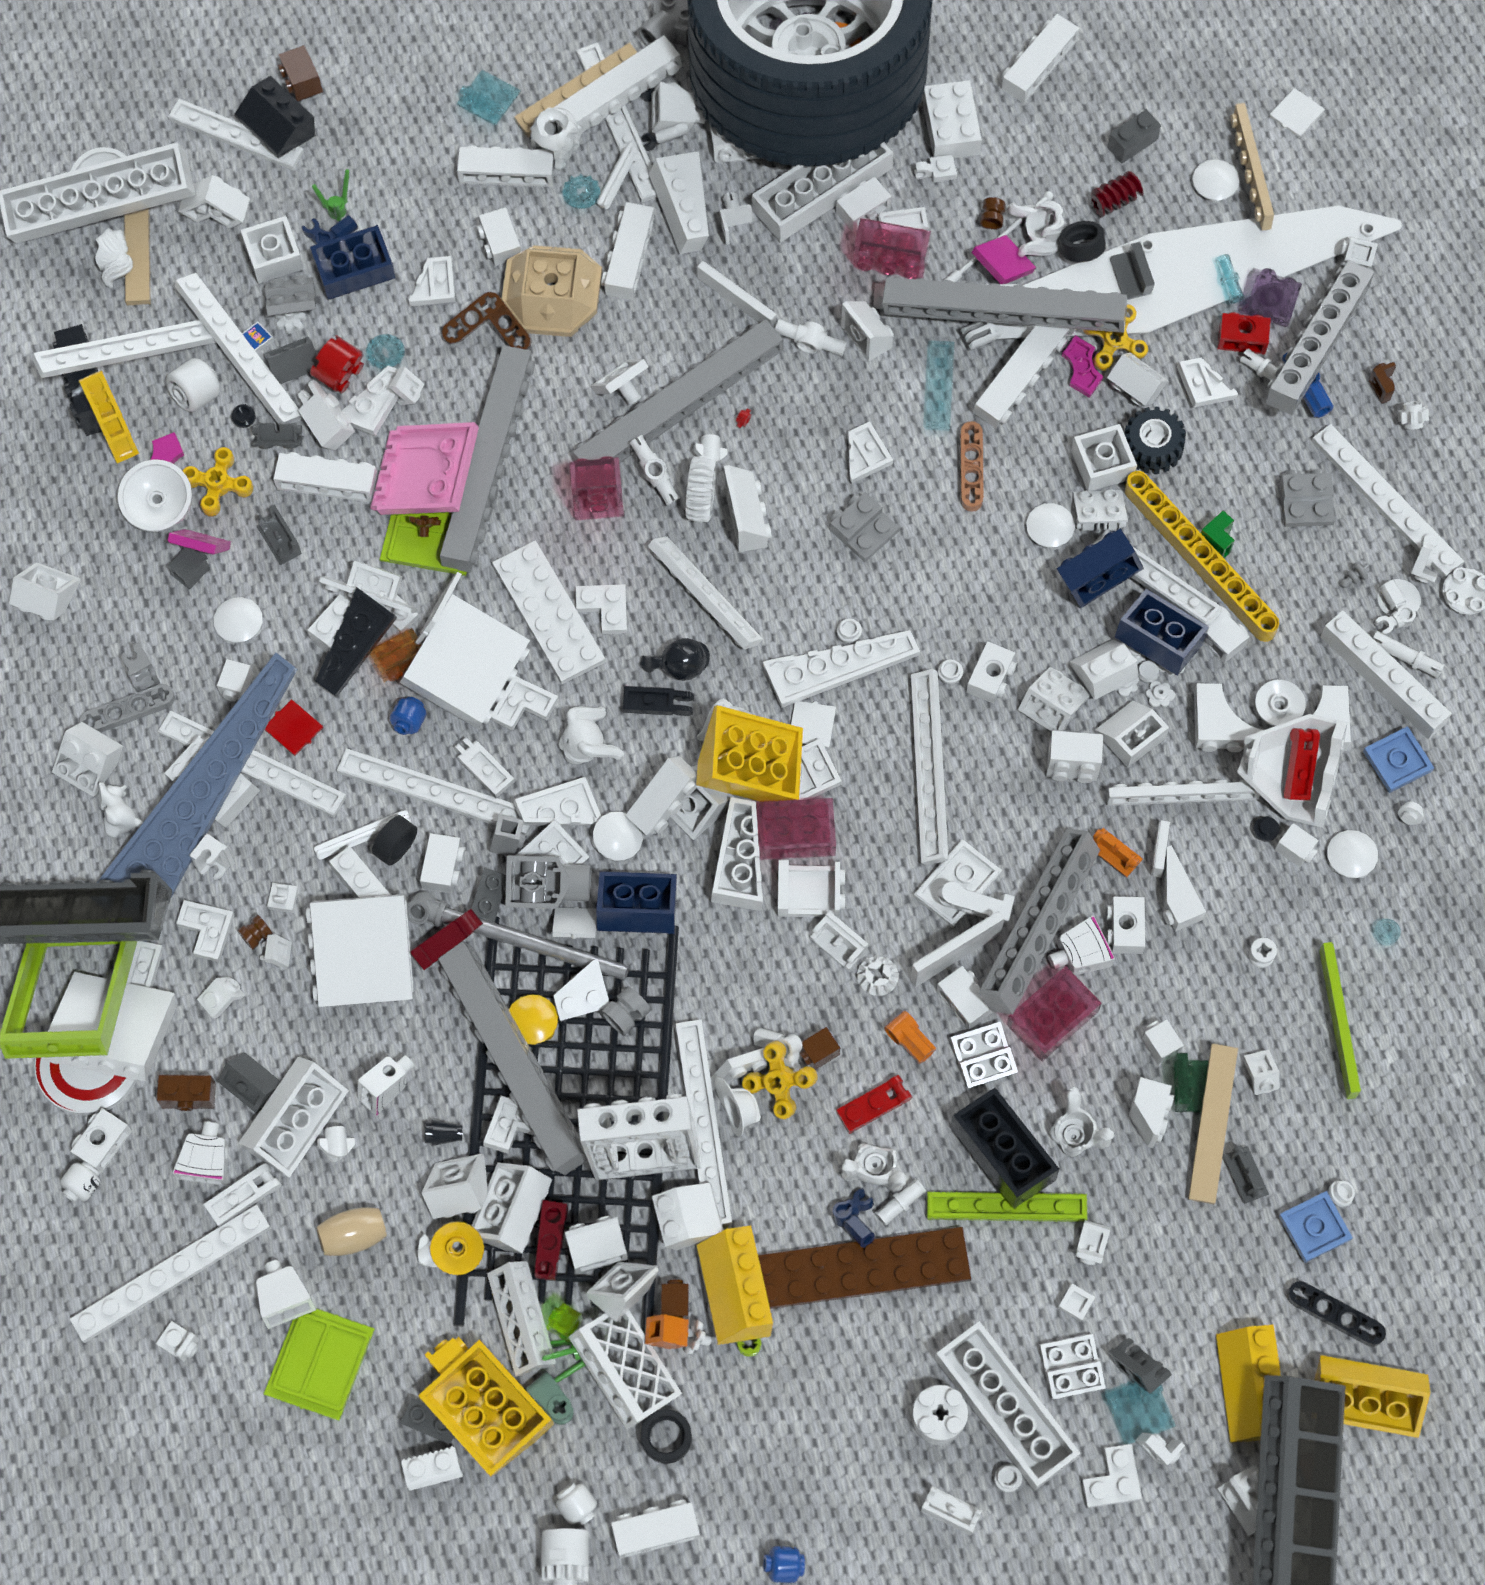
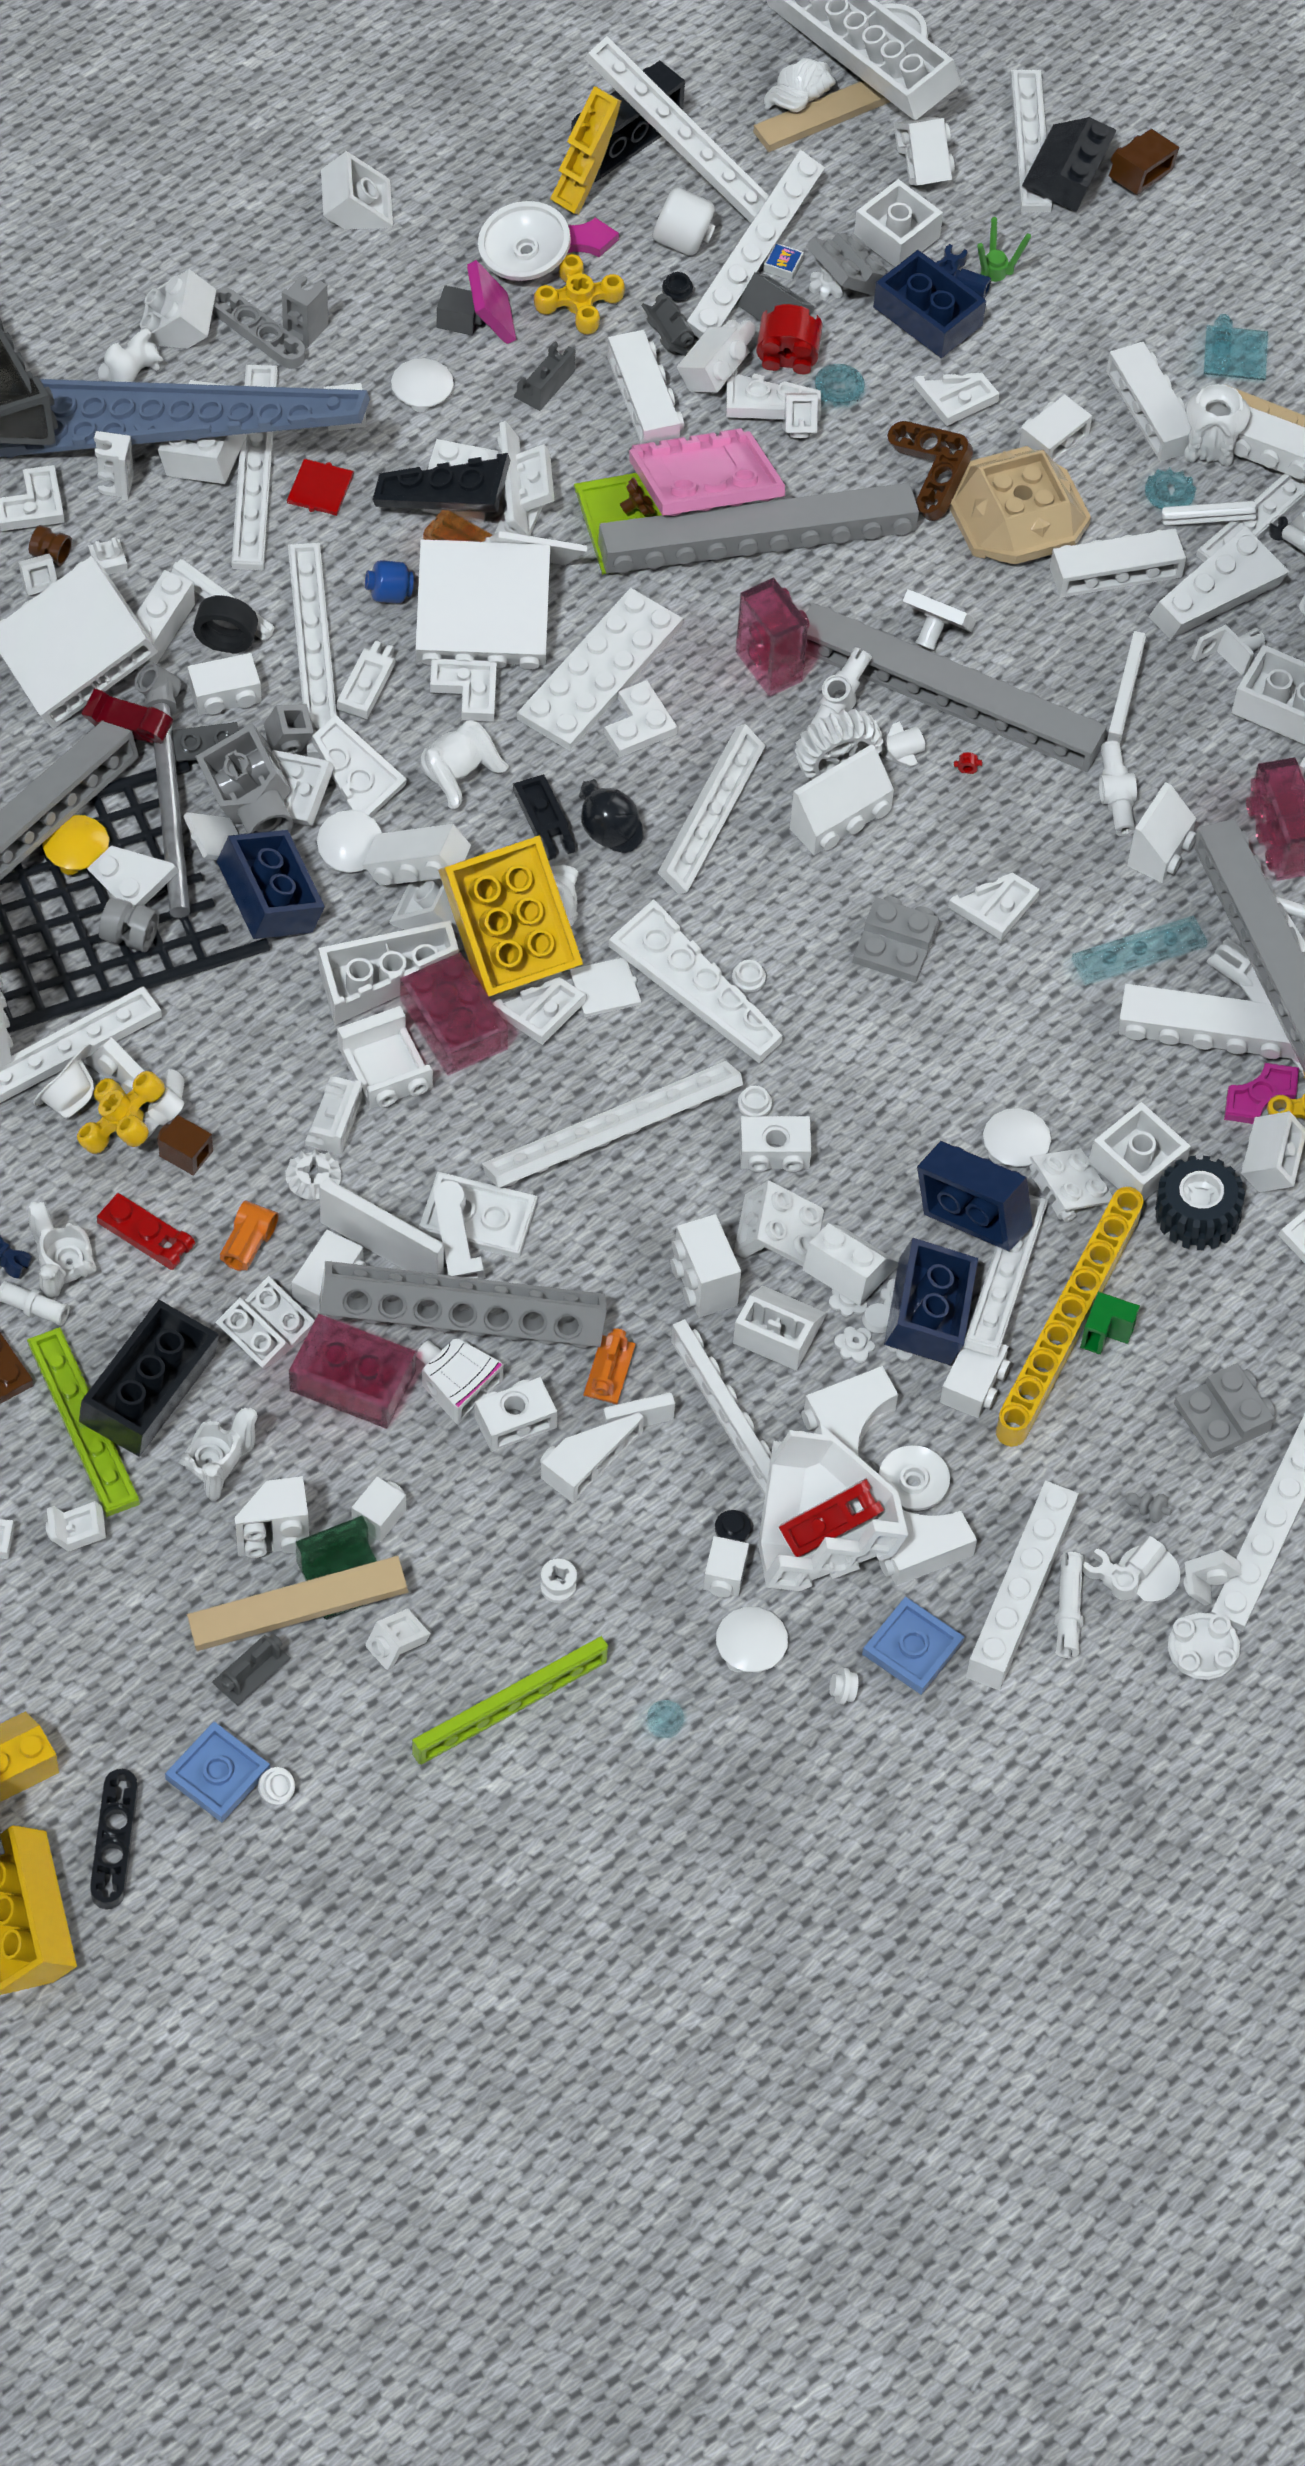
camera: 60 degrees right, 10 degrees down
(971, 466) = (1045, 1020): nougat beam -> none

